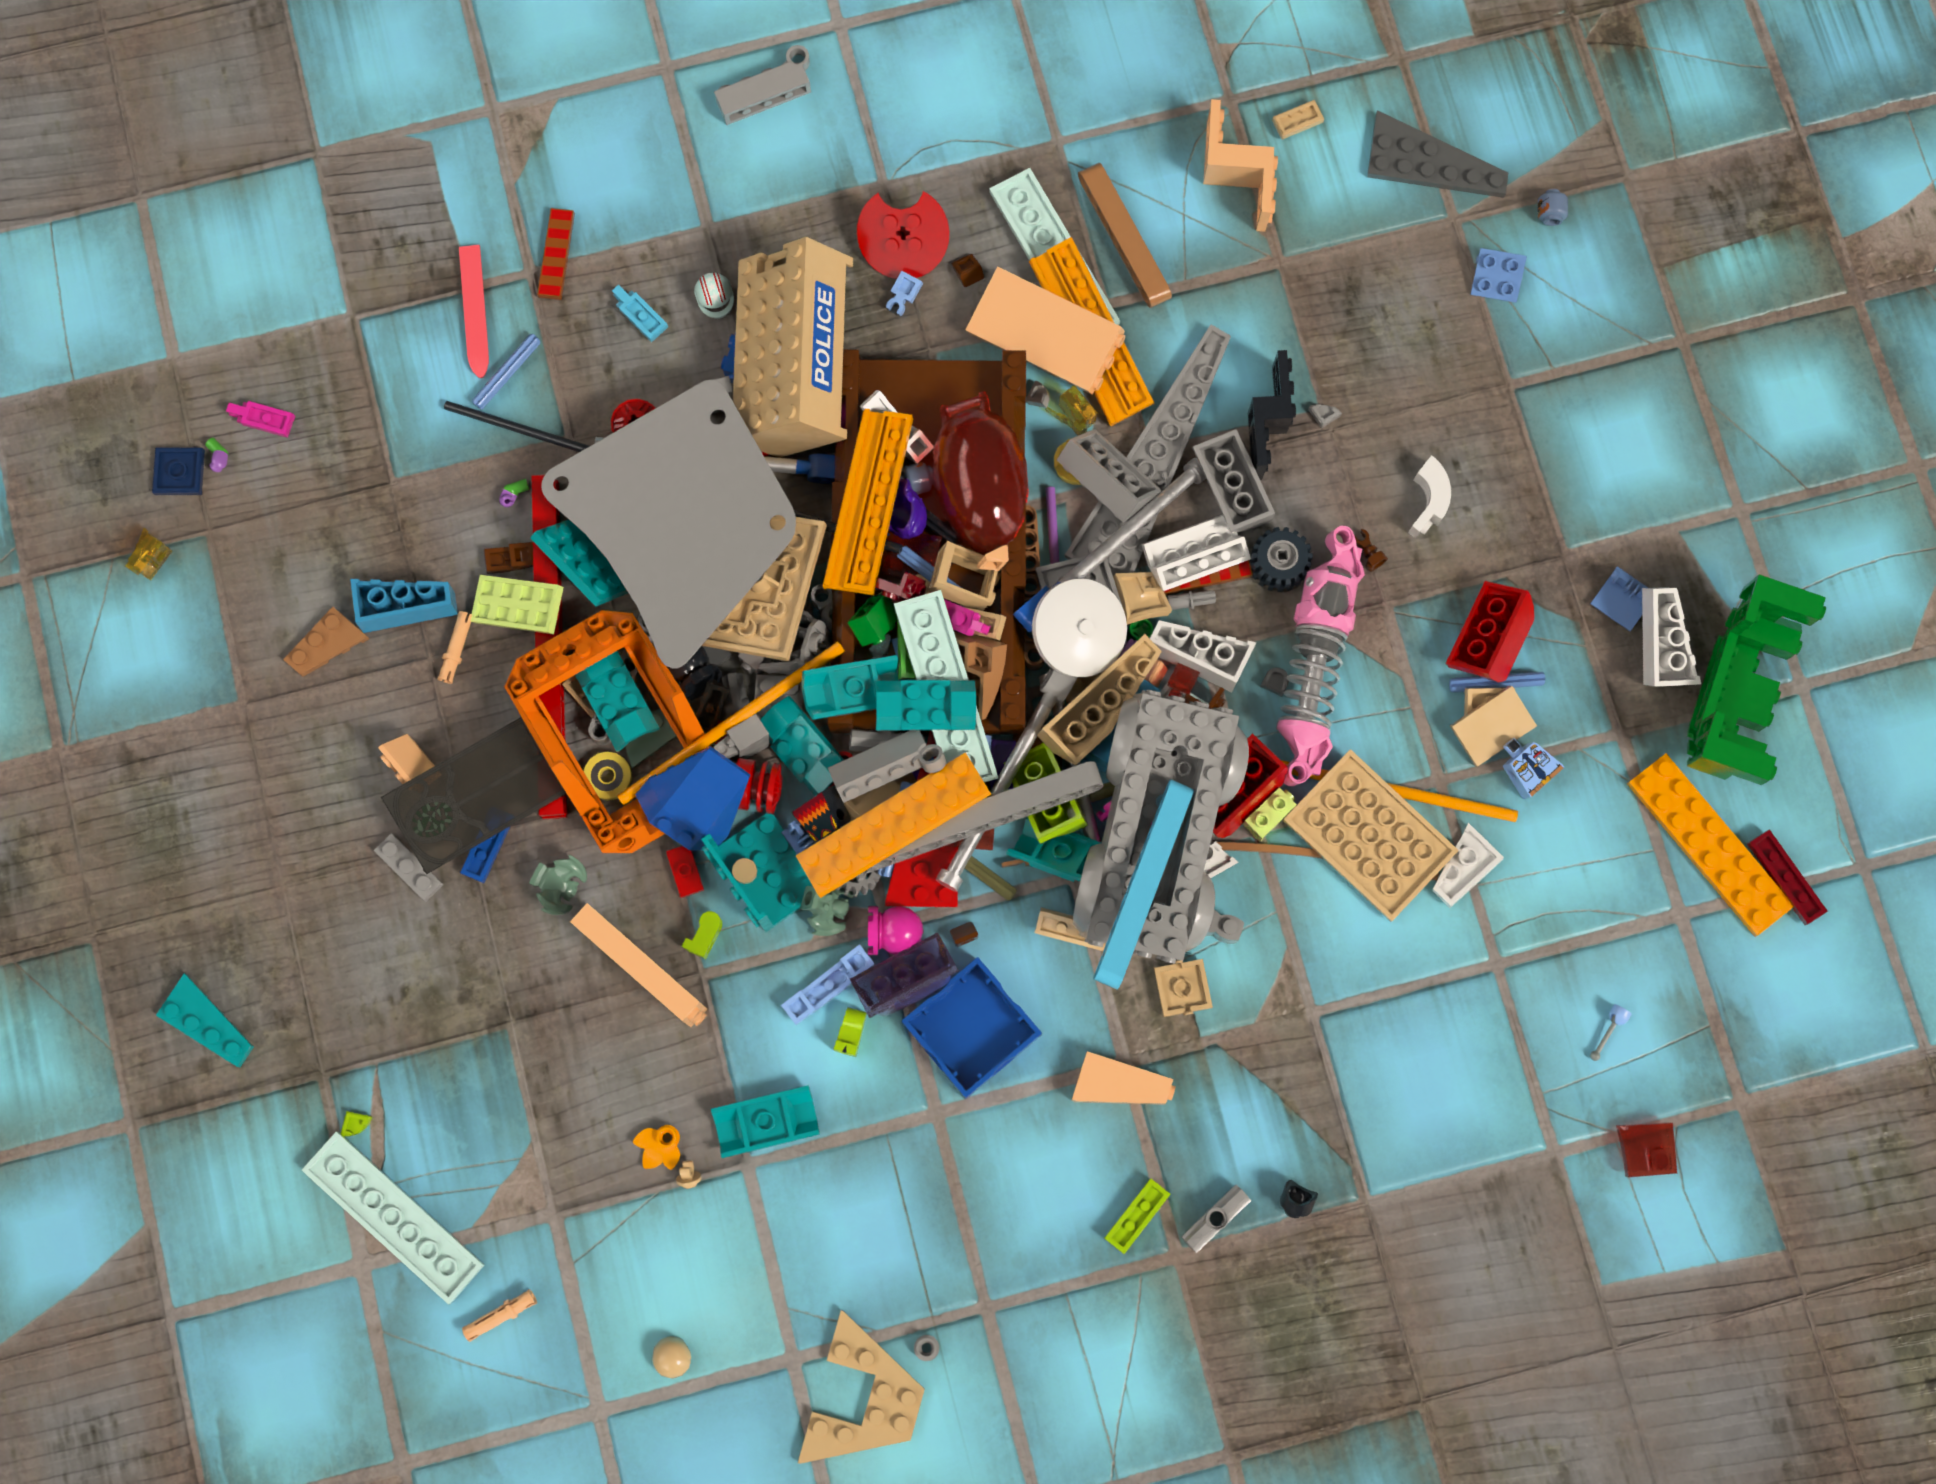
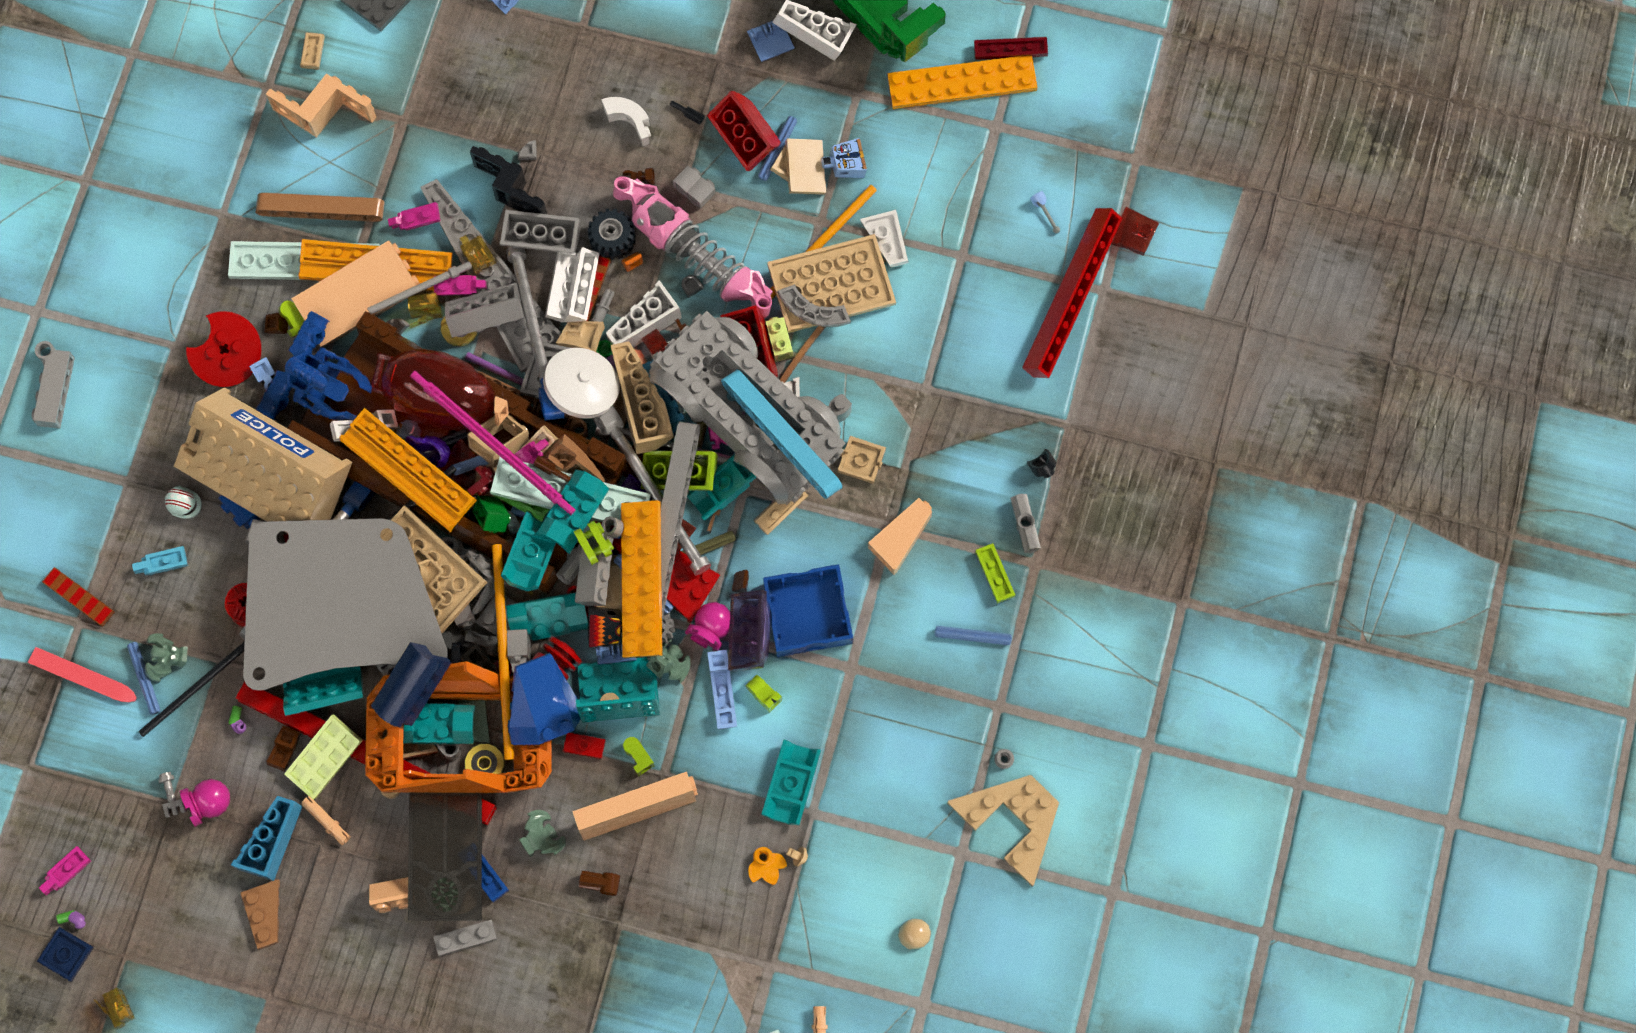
camera: 60 degrees left, 5 degrees down
(390, 482) = (166, 779): none -> light grey hinge
(407, 513) = (206, 800): none -> dark pink tile
(539, 377) = (165, 655): none -> sand green animal
(545, 981) = (605, 883): none -> reddish brown piece
(625, 647) = (410, 685): none -> dark blue brick
(902, 762) = (604, 547): none -> lime brick
(921, 337) = (311, 375): none -> blue piece
(946, 574) = (493, 443): none -> dark pink axle
(958, 651) = (549, 468): none -> reddish brown axle
(984, 274) = (292, 315): none -> lime leg
(1050, 1231) = (973, 635): none -> medium blue axle
(1120, 430) = (460, 286): none -> dark pink hinge
(1129, 416) = (452, 272): none -> light grey bar
(1168, 429) = (477, 253): none -> clear yellow piece
(1173, 341) = (416, 217): none -> dark pink hinge
(1264, 600) = (632, 261): none -> orange slope
(1320, 832) = (812, 313): none -> light grey tile
(1393, 616) = (694, 186): none -> light grey brick
(1478, 560) = (689, 112): none -> black axle
(1528, 1118) = (1072, 293): none -> red brick

